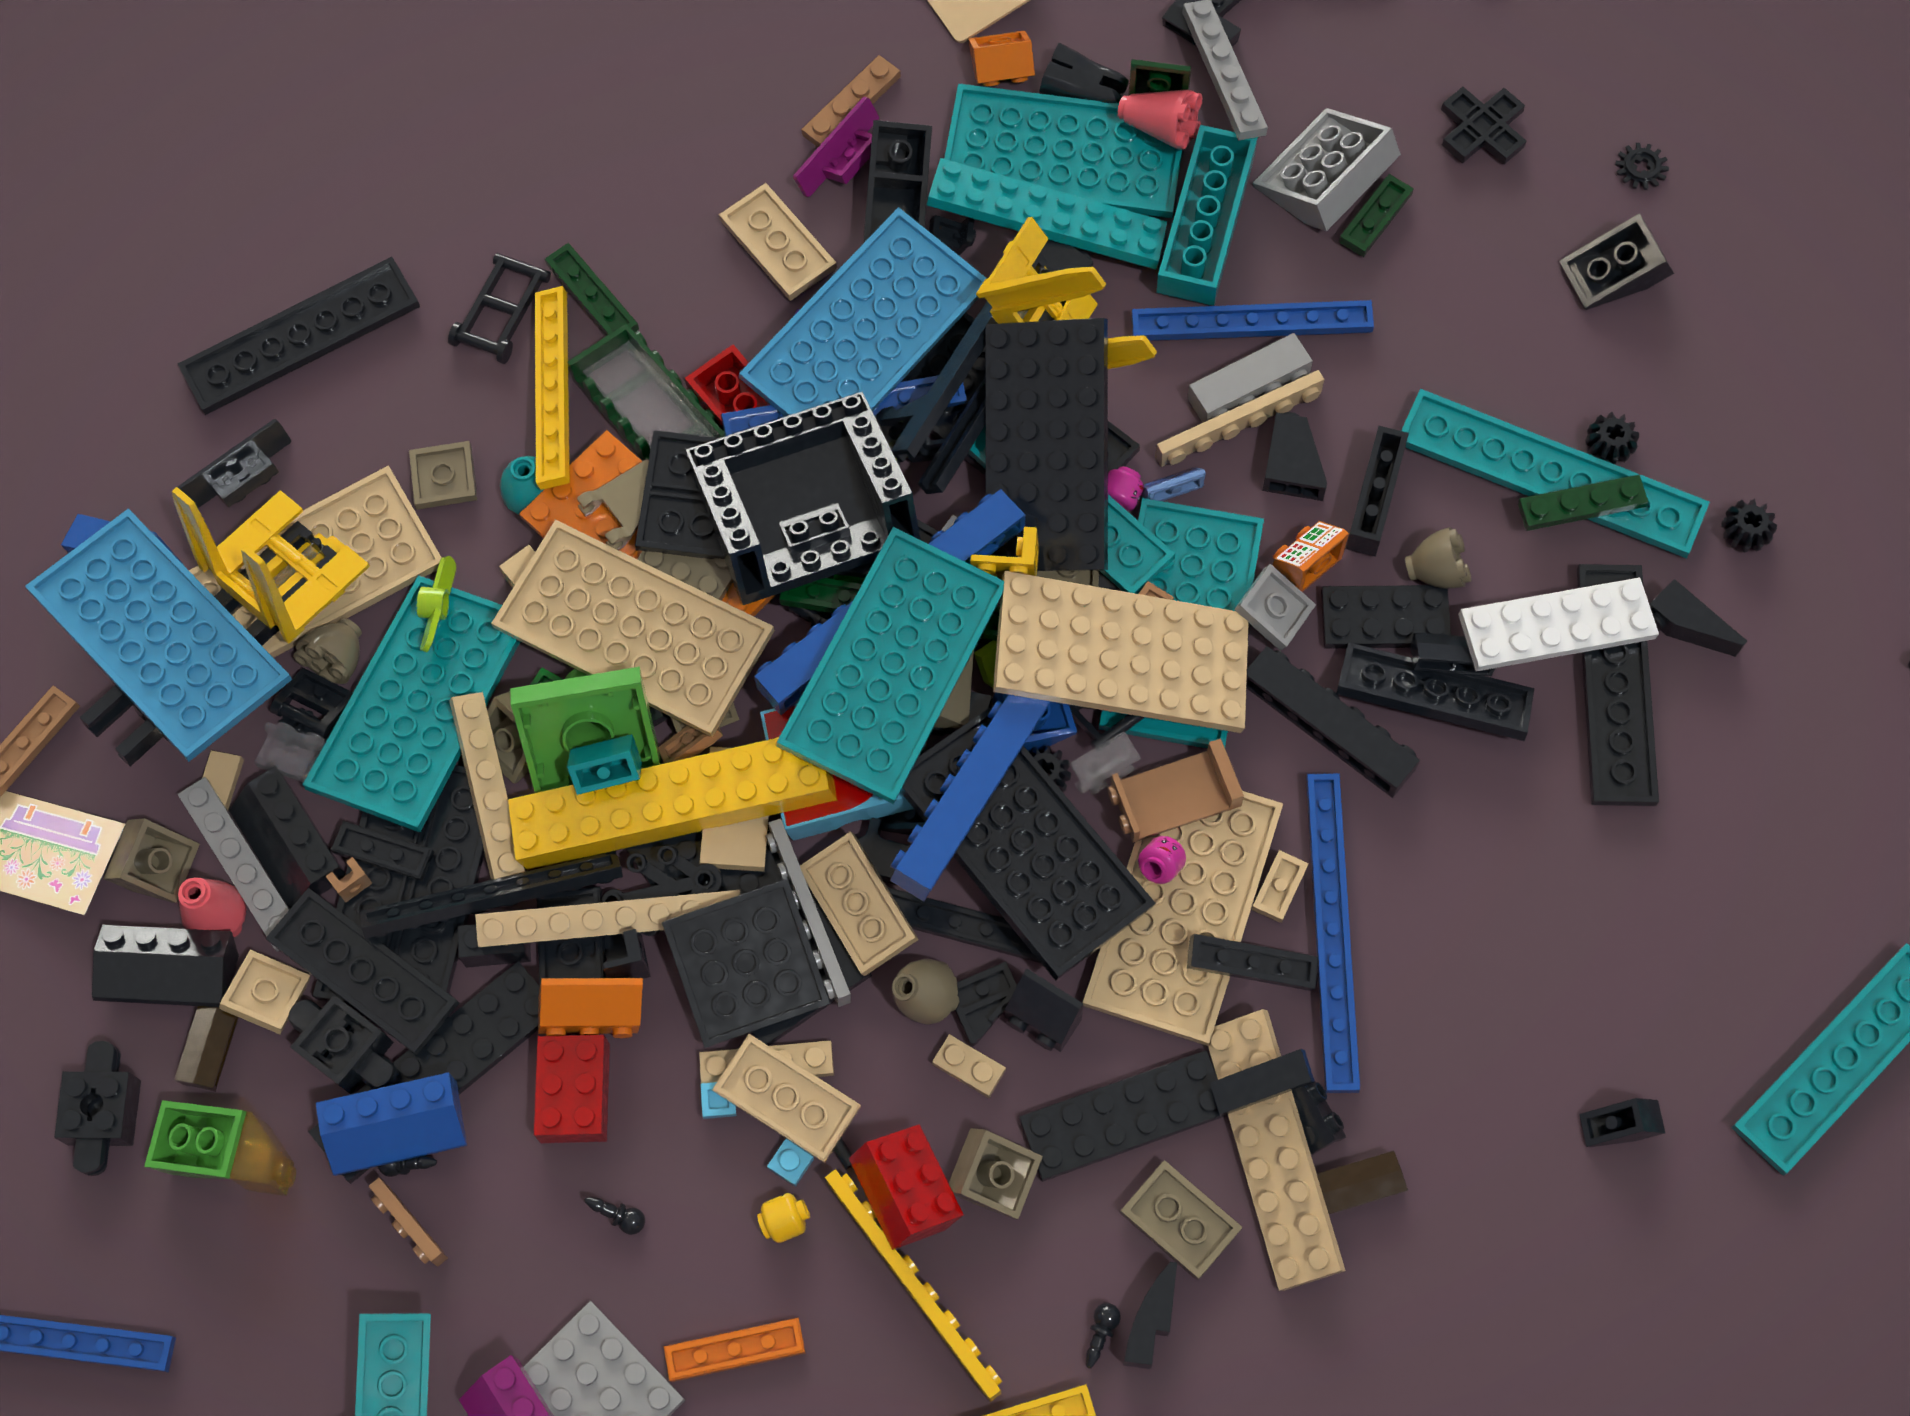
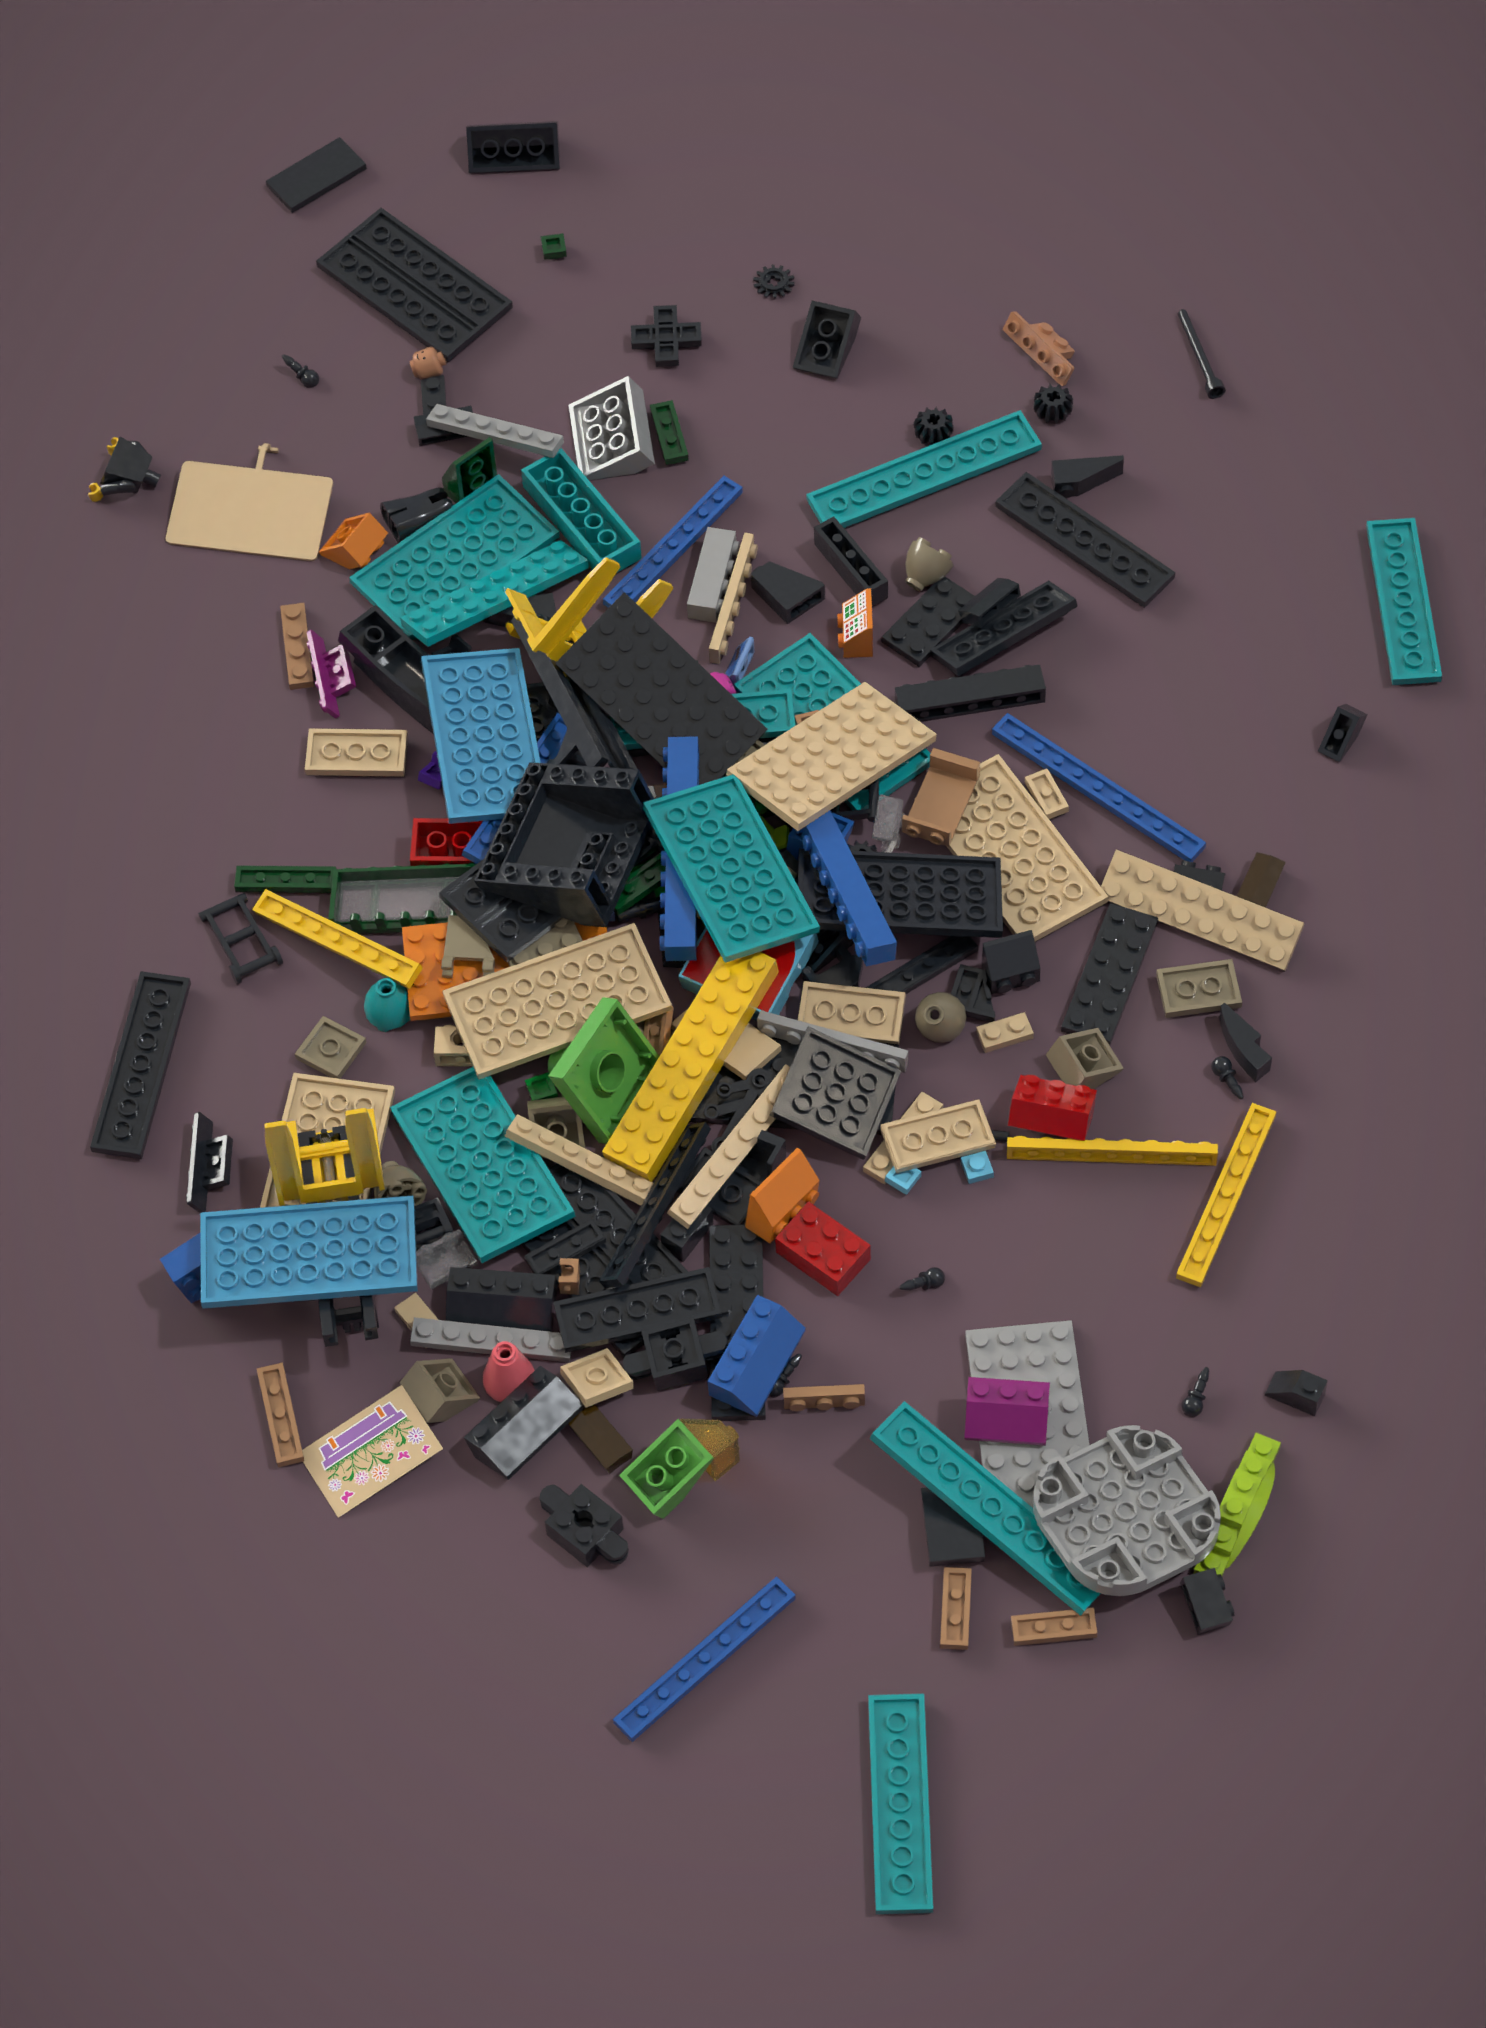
camera: 50 degrees left, 10 degrees down
(434, 601) = (425, 1105): lime piece -> none
(604, 764) = (638, 1072): teal brick -> none
(734, 1349) = (1065, 1275): orange tile -> none
(783, 1218) = (1009, 1191): yellow head -> none
(1025, 563) = (723, 756): yellow bracket -> none
(1162, 859) = (977, 833): dark pink head -> none
(1164, 115) = (493, 484): coral cone -> none
(1252, 962) = (1081, 837): black plate -> none
(1262, 1082) = (1159, 880): black tile -> none
(1275, 607) = (873, 667): light grey plate -> none
(1558, 624) = (1024, 536): white plate -> none
(1582, 502) = (960, 469): dark green plate -> none
(1810, 462) = (1042, 346): none -> nougat bracket

